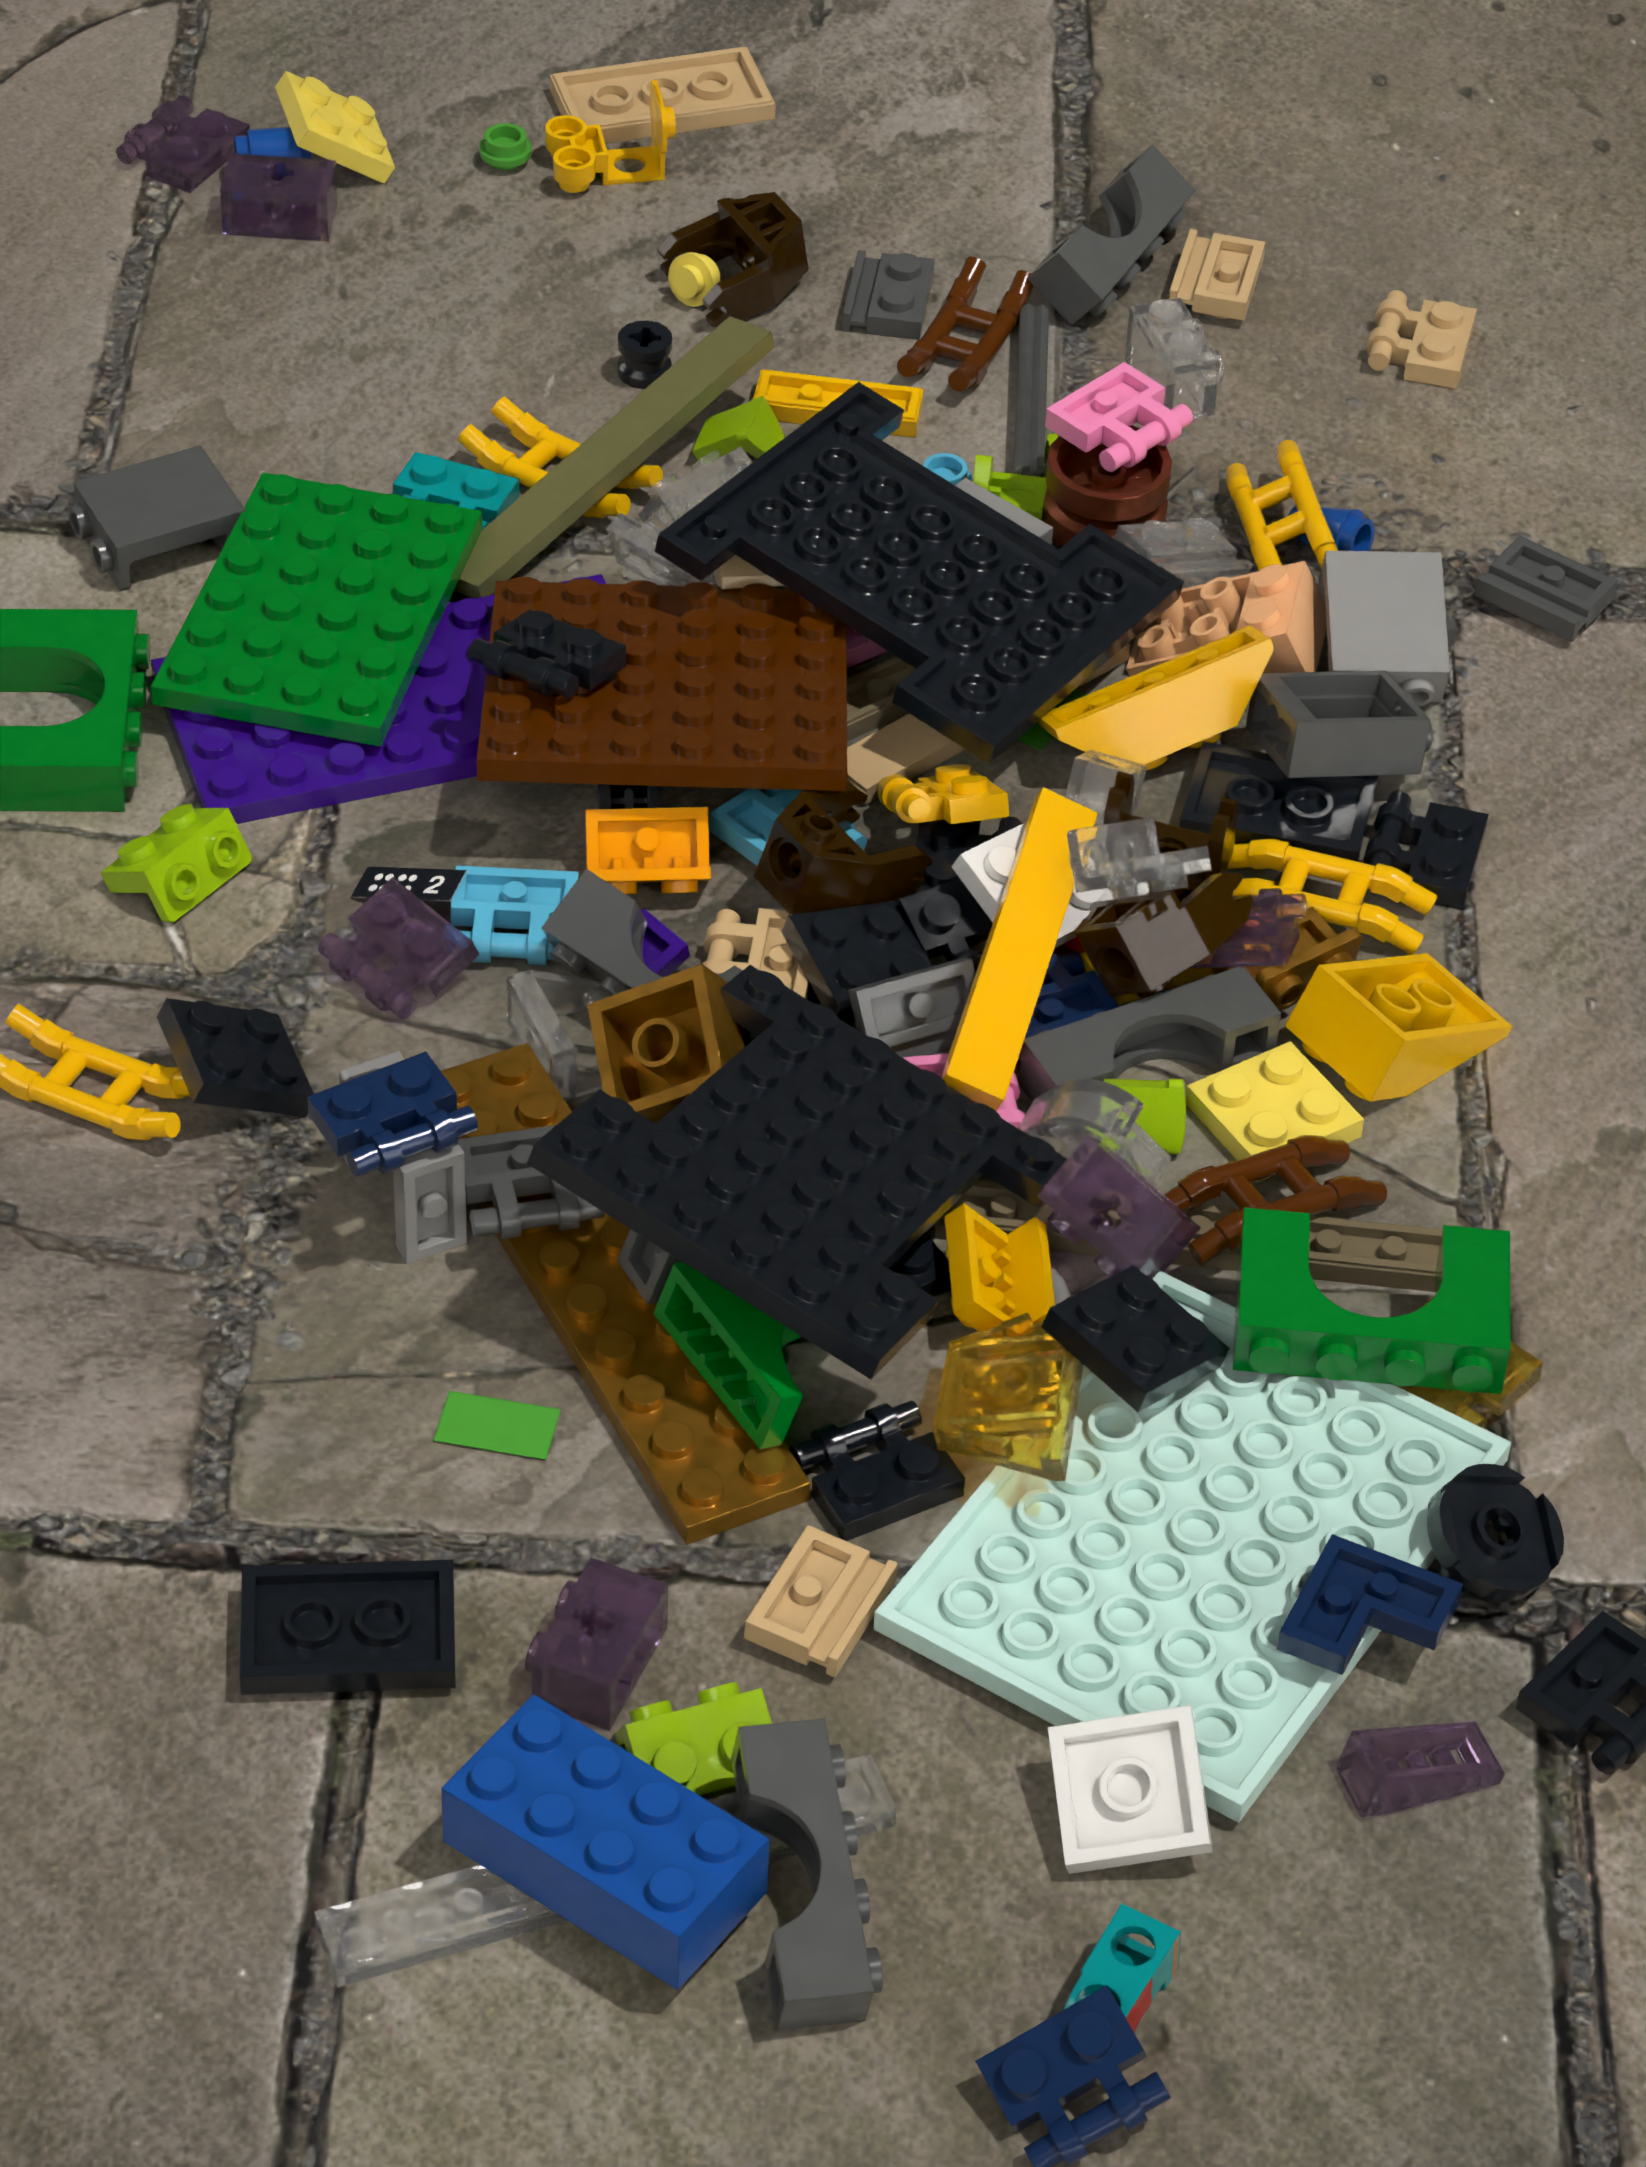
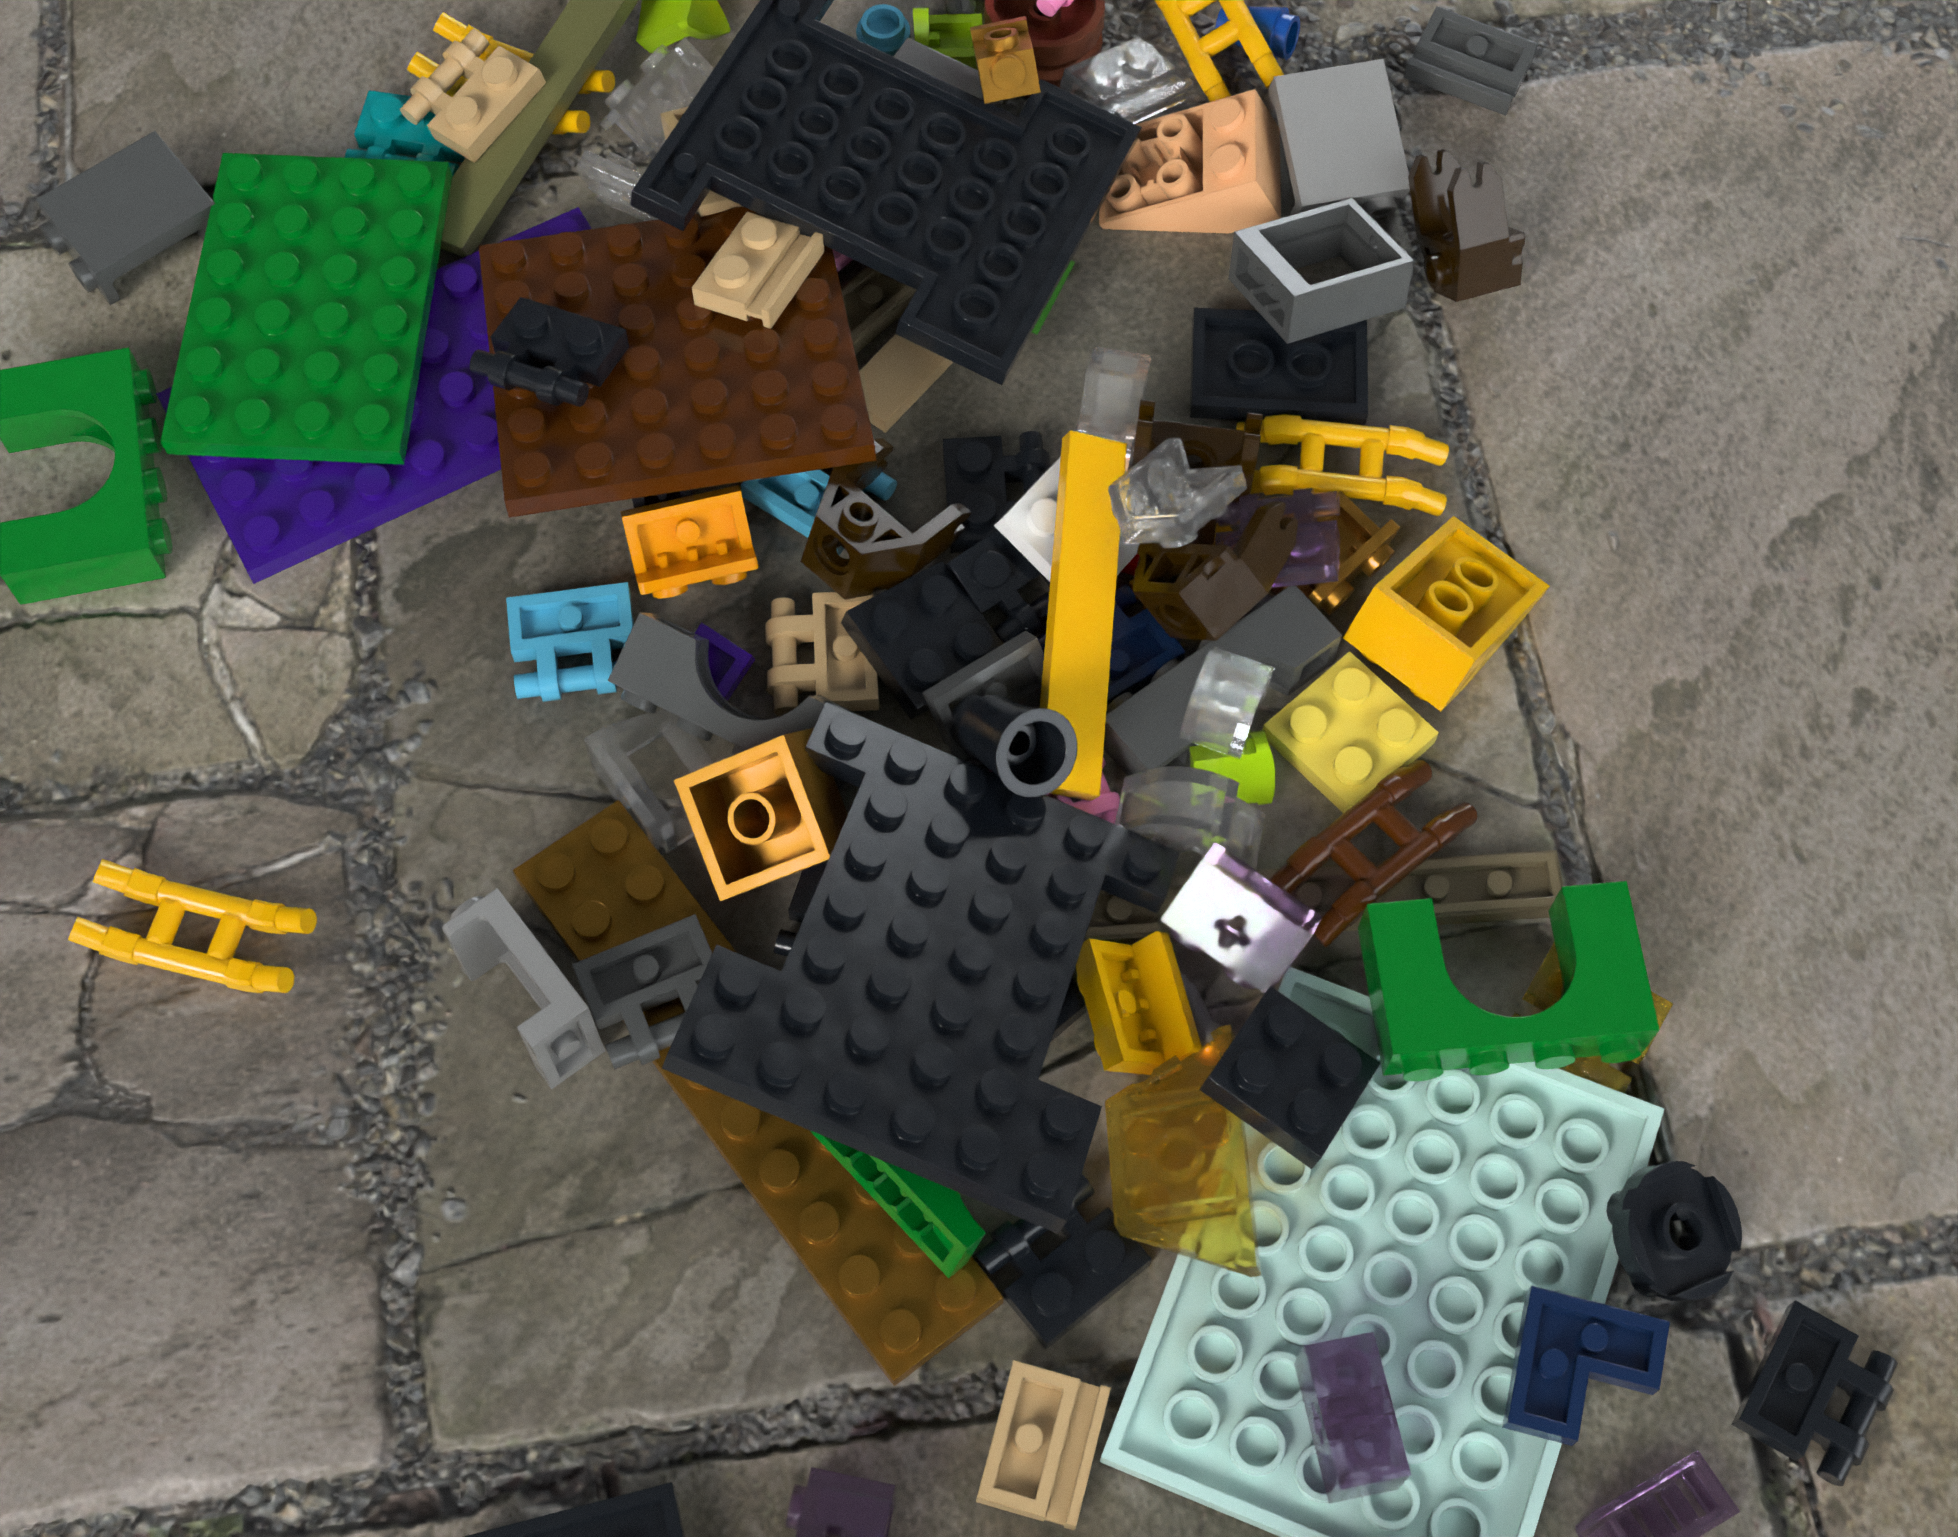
camera: 10 degrees left, 20 degrees up
(180, 859) = (231, 638): lime bracket -> none
(235, 1057) = (332, 885): black plate -> none
(391, 1115) = (494, 970): dark blue plate -> none
(411, 936) = (479, 694): clear purple plate -> none
(423, 883) = (463, 623): black sticker -> none
(497, 1425) = (679, 1275): bright green sticker -> none
(525, 473) = (483, 105): none -> tan plate
(767, 625) = (758, 269): none -> tan plate
(933, 1025) = (1021, 744): none -> black plant
(951, 796) = (964, 423): yellow plate -> none
(1055, 497) = (1005, 60): none -> pearl gold brick
(1125, 1602) = (1351, 1417): none -> clear purple brick
(1143, 1026) = (1226, 702): none -> clear brick
(1167, 704) = (1150, 272): yellow wedge -> none
(1445, 844) = (1443, 387): black plate -> none
(1492, 711) = (1464, 229): none -> dark brown piece

